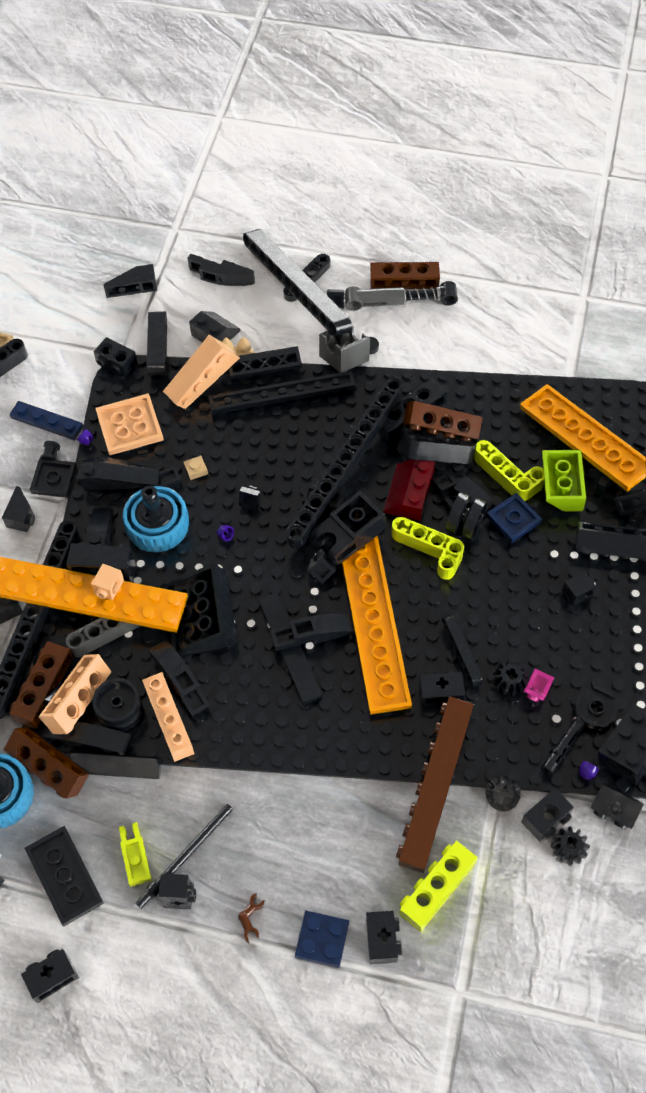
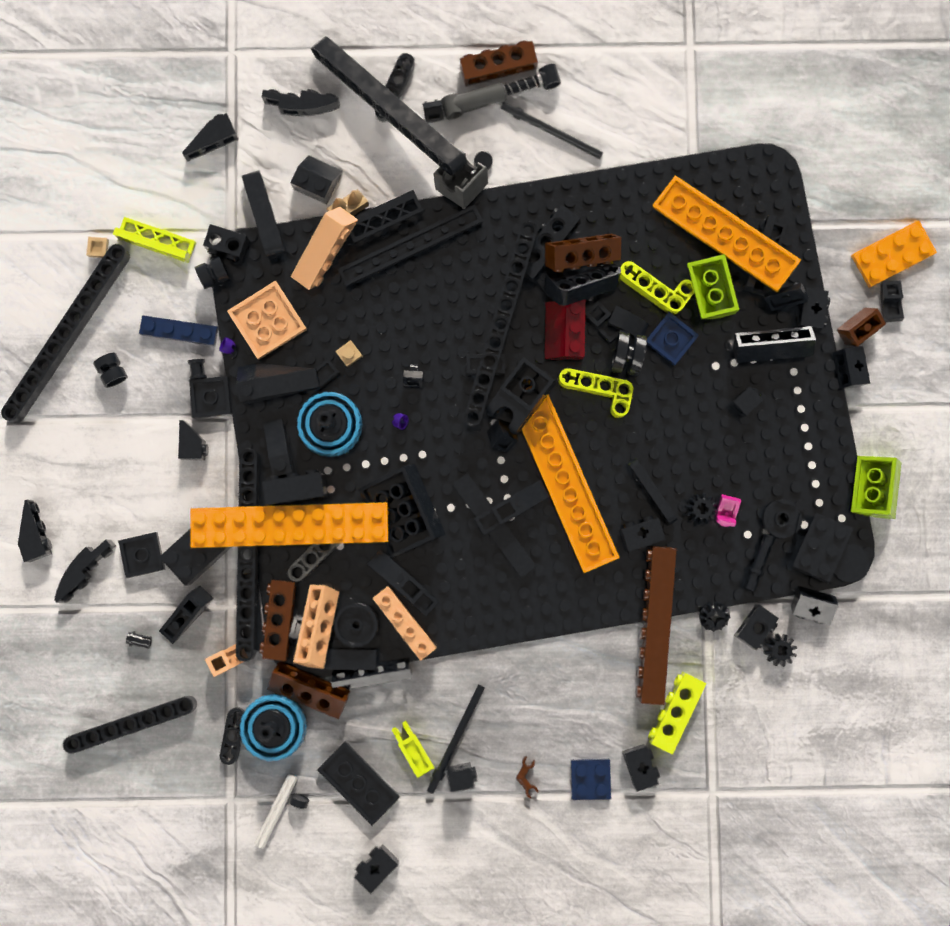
camera: 20 degrees left, 25 degrees up
(54, 350) = (154, 244): none -> neon yellow fence
(93, 376) = (211, 273): none -> black wheel
(107, 582) = (311, 516): light nougat brick -> none
(414, 317) = (519, 113): none -> black bar
(588, 770) = (784, 580): dark purple hinge -> none

